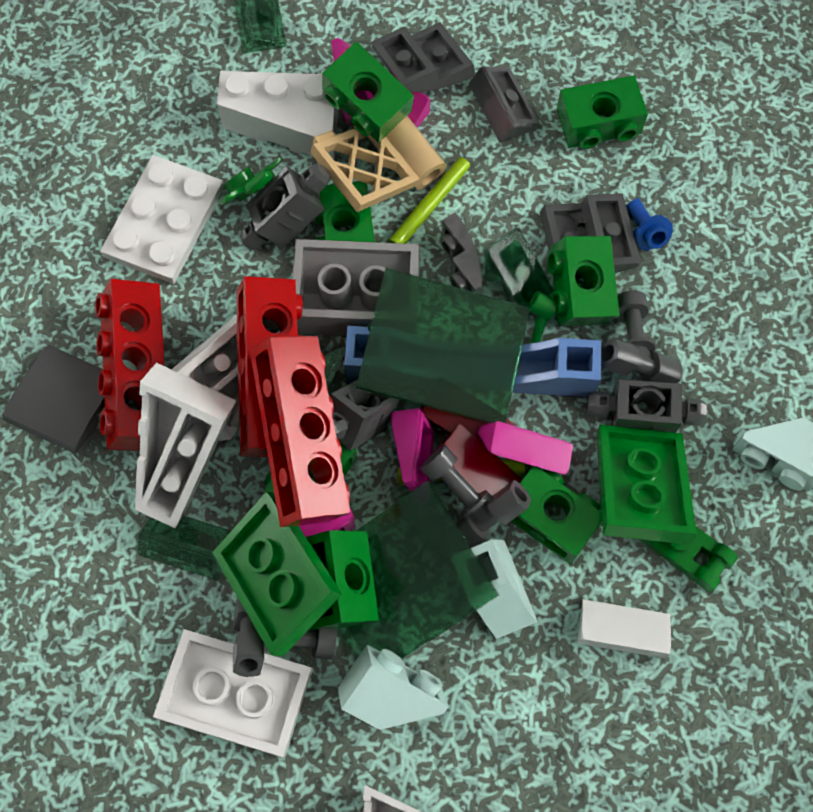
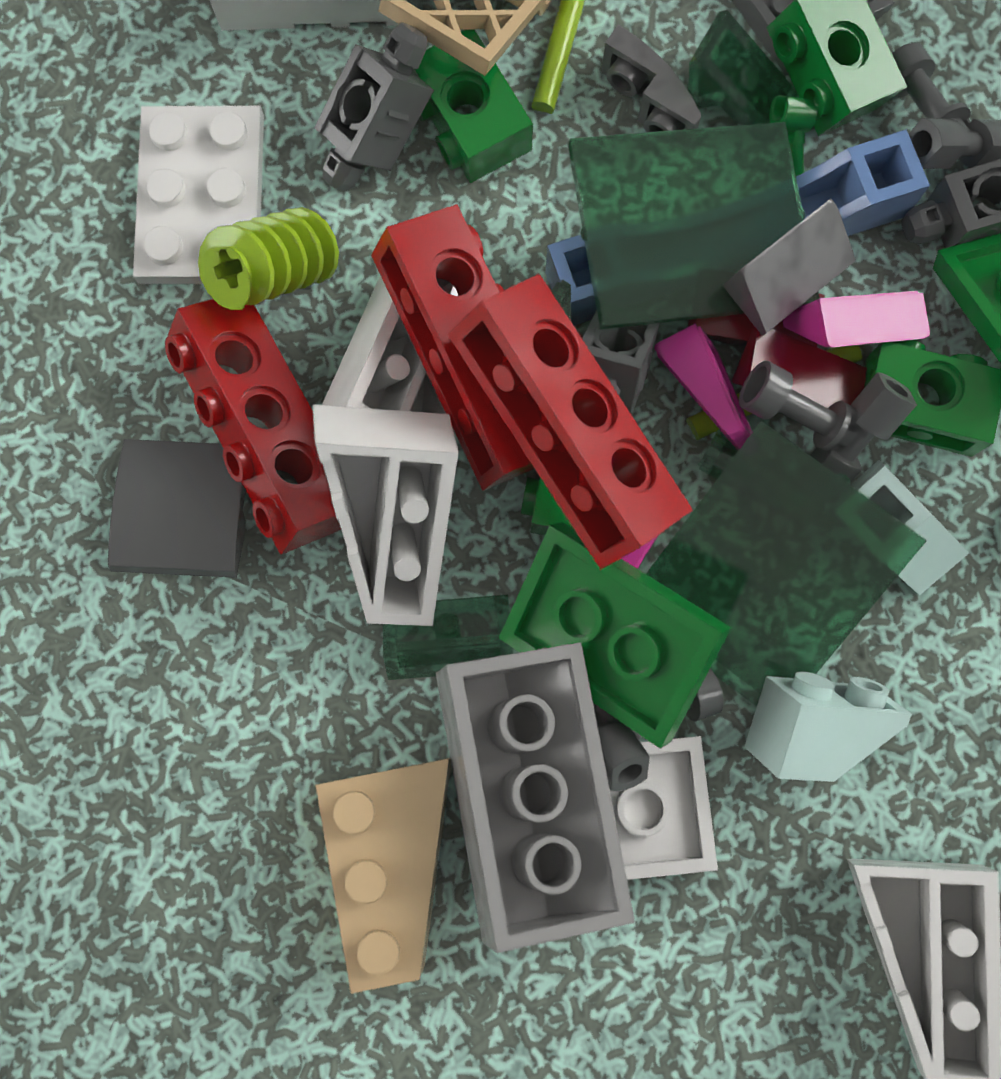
camera: 20 degrees left, 10 degrees up
(78, 664) = (383, 867): none -> tan wedge
(179, 269) = (267, 257): none -> lime piece
(182, 653) = (533, 797): none -> light grey slope
(247, 183) = (298, 96): green plate -> none
(344, 281) = (515, 178): light grey slope -> none
(349, 564) = (702, 576): green brick -> none
(491, 396) = (792, 268): none -> flat silver slope

